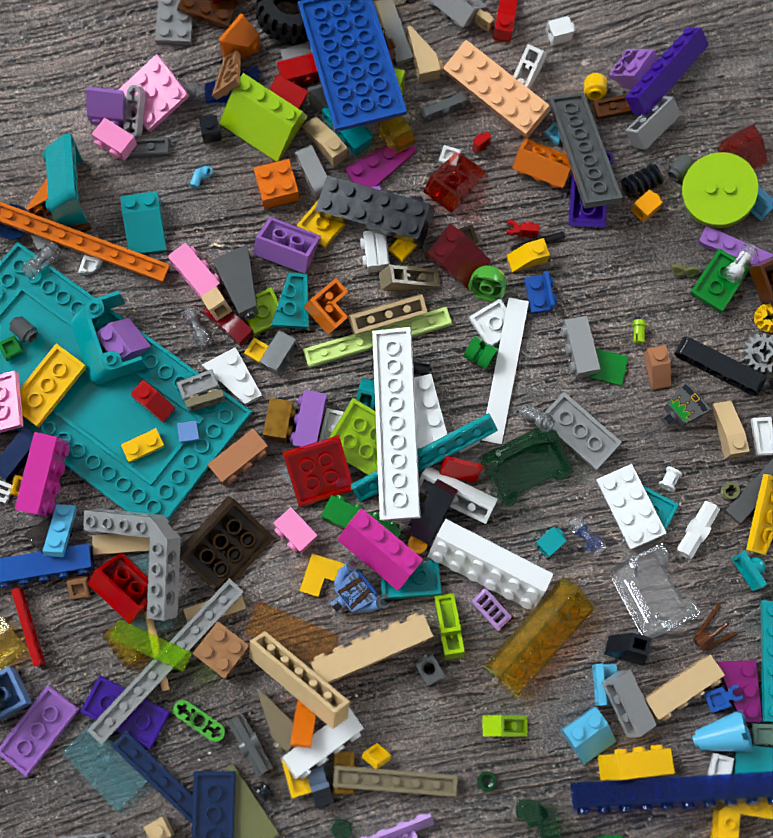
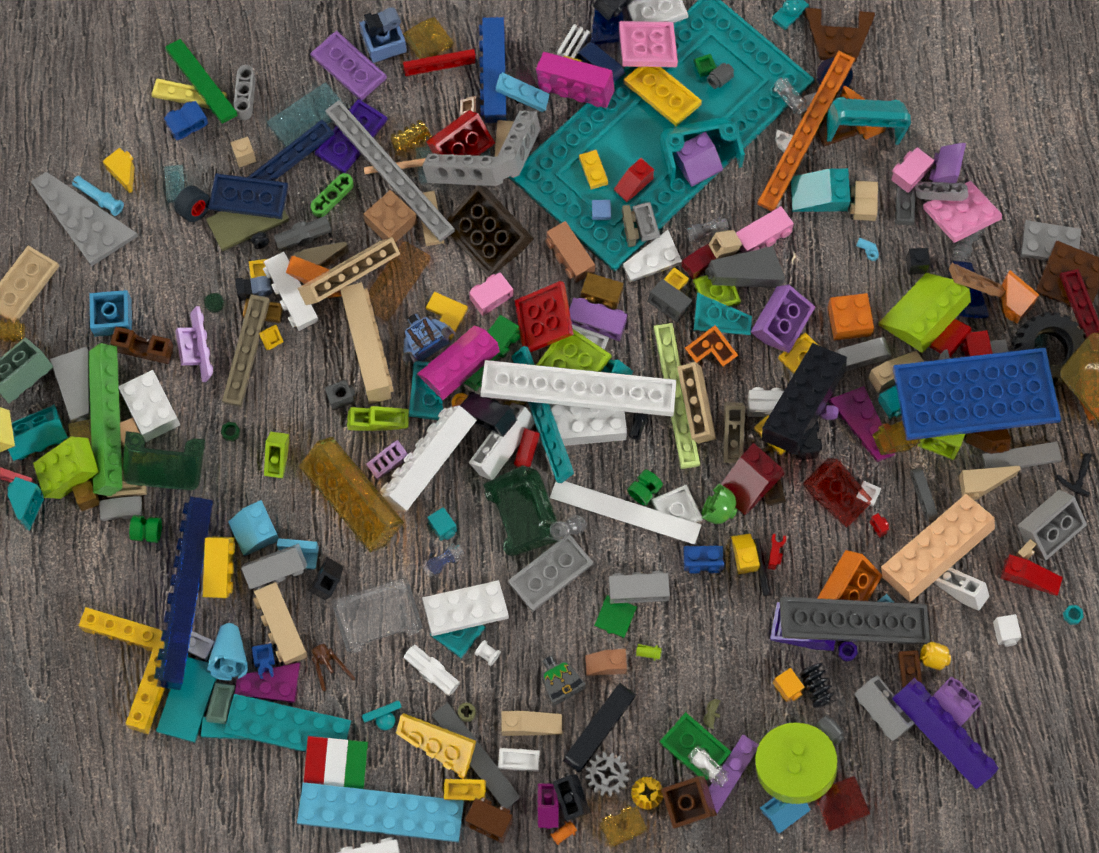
camera: 100 degrees right, 5 degrees down
(150, 181) = (865, 200): none -> tan brick
(150, 645) = (403, 155): clear neon green tile -> none

